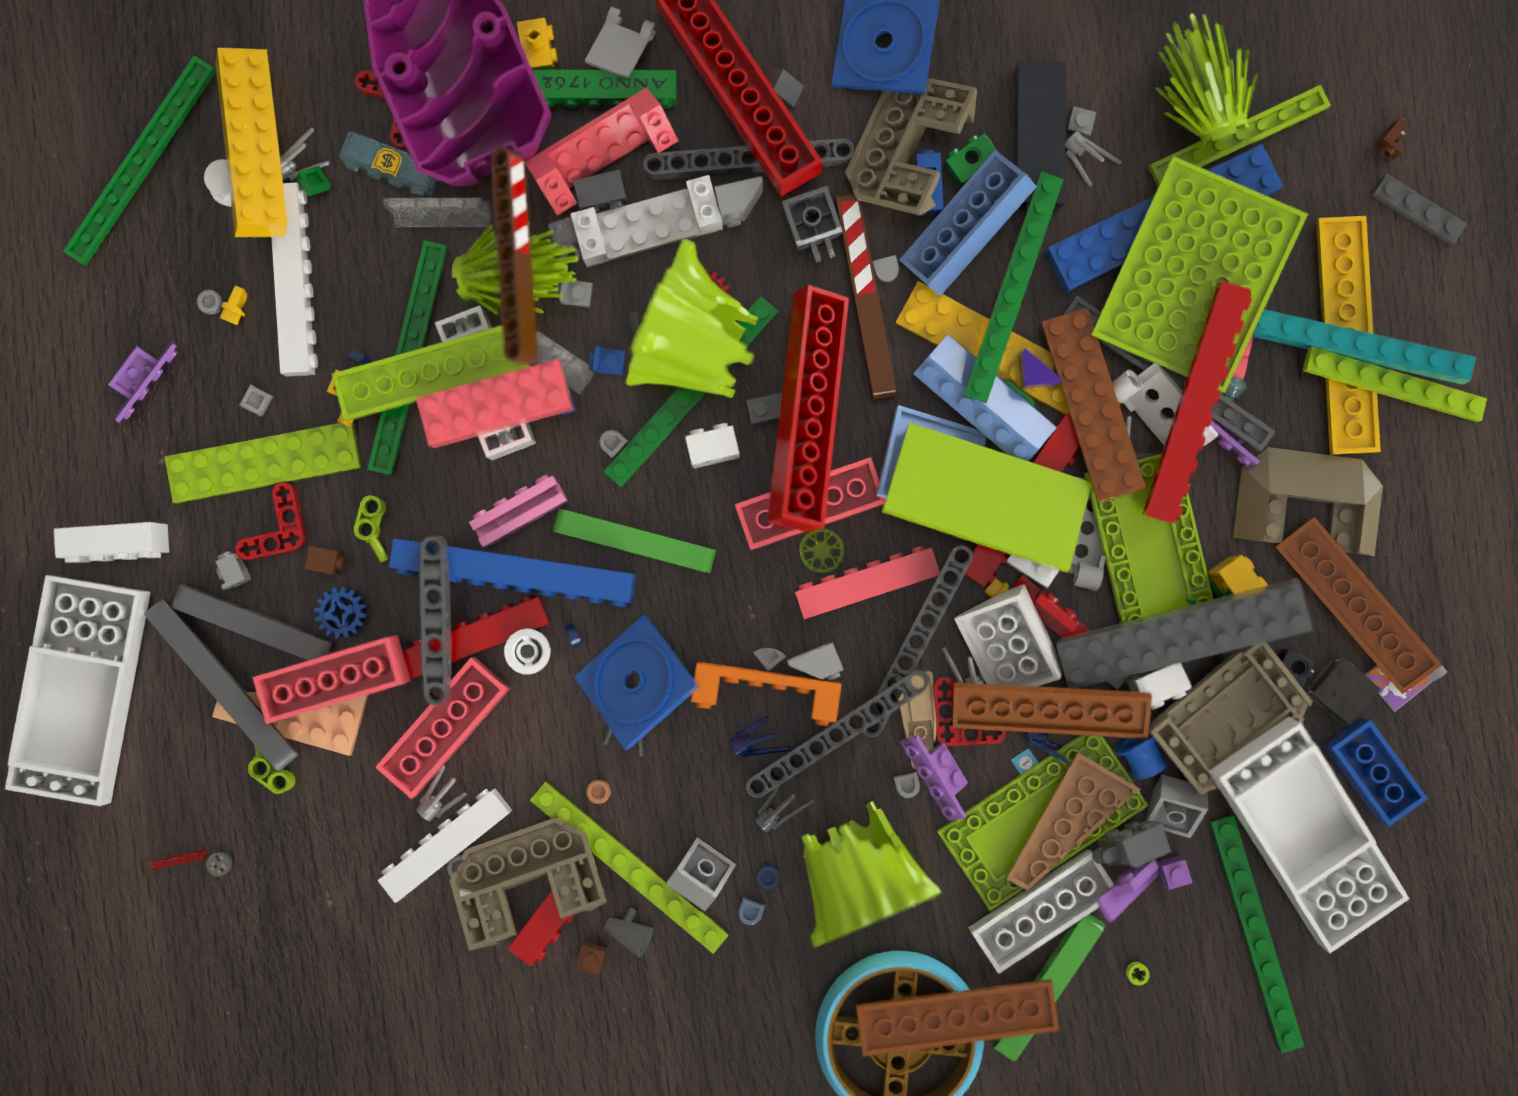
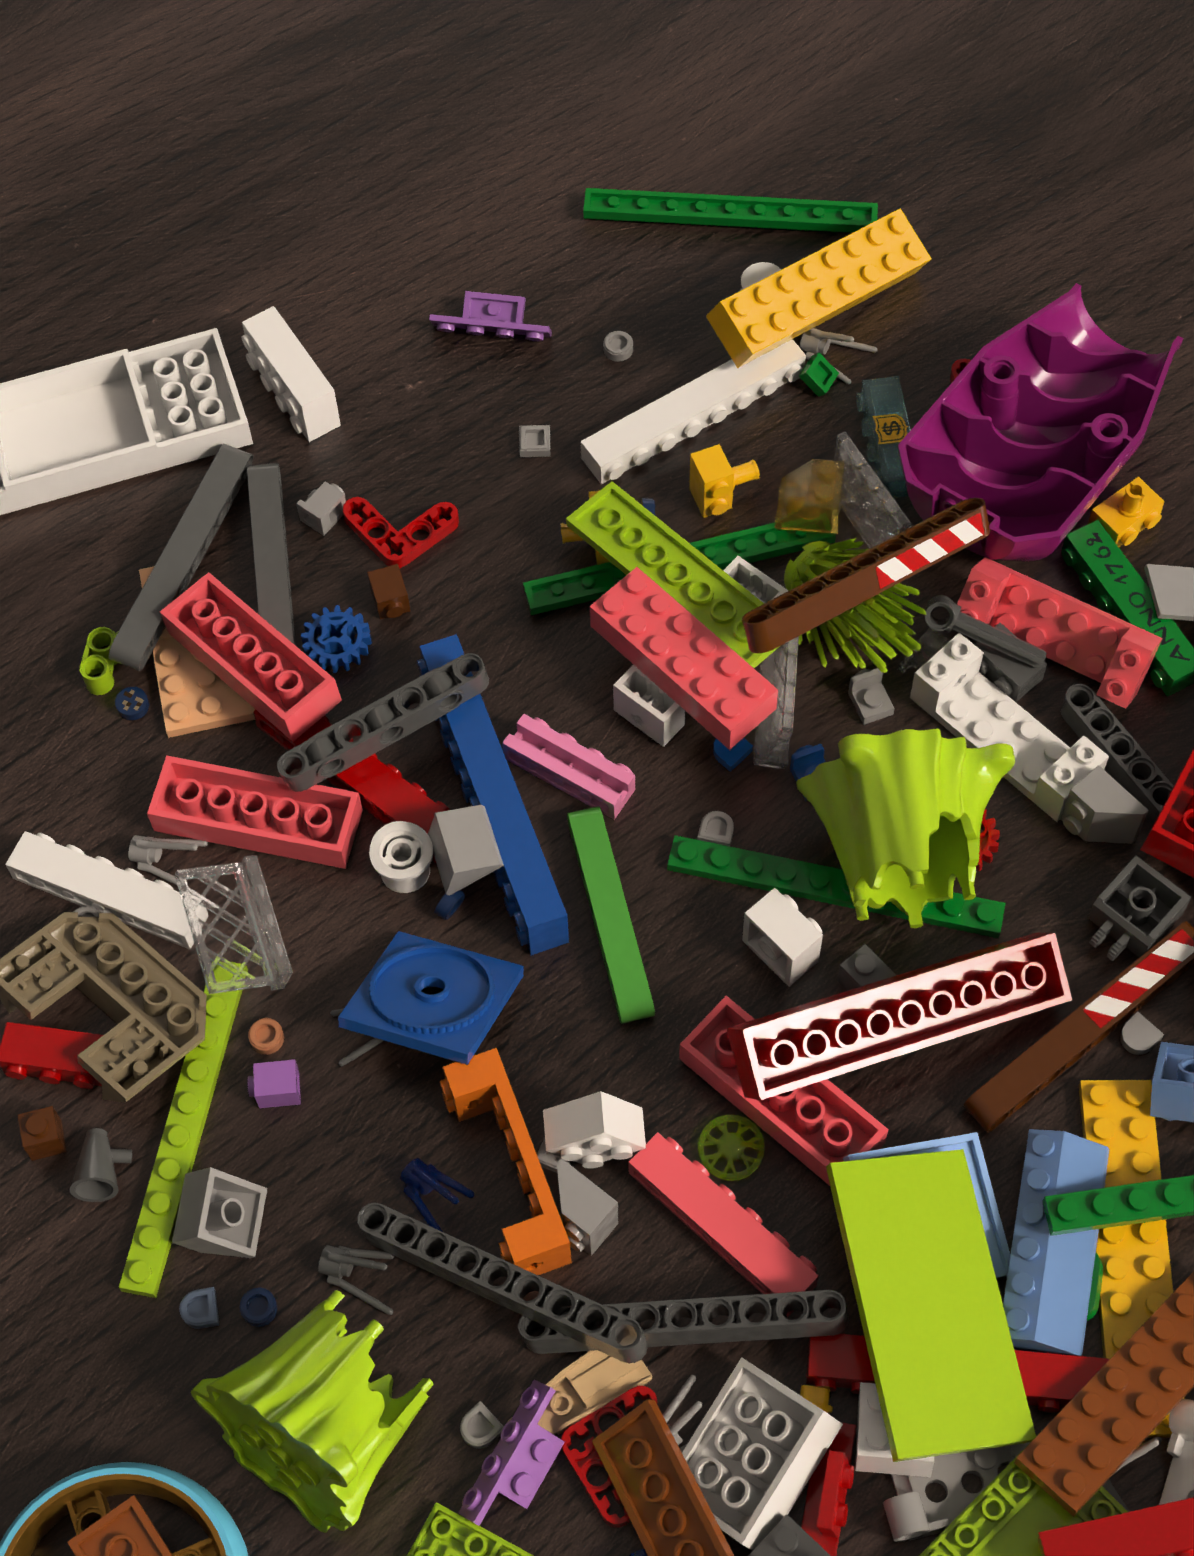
camera: 60 degrees right, 25 degrees down
(232, 310) = (629, 368): yellow piece -> none
(262, 462) = (470, 481): lime plate -> none
(314, 767) = (132, 703): none -> dark blue tile
(363, 301) = (714, 479): none -> yellow brick
(364, 517) = (465, 610): lime beam -> none
(411, 246) = (812, 497): none -> clear yellow slope
(522, 759) = (261, 926): none -> clear fence
(549, 611) = (463, 846): none -> light grey slope
(575, 201) = (982, 632): none -> dark grey axle
(635, 802) = (275, 1084): none -> medium lavender brick
(777, 630) = (594, 1129): none -> white brick
(1034, 372) = (1131, 1286): dark purple slope -> none

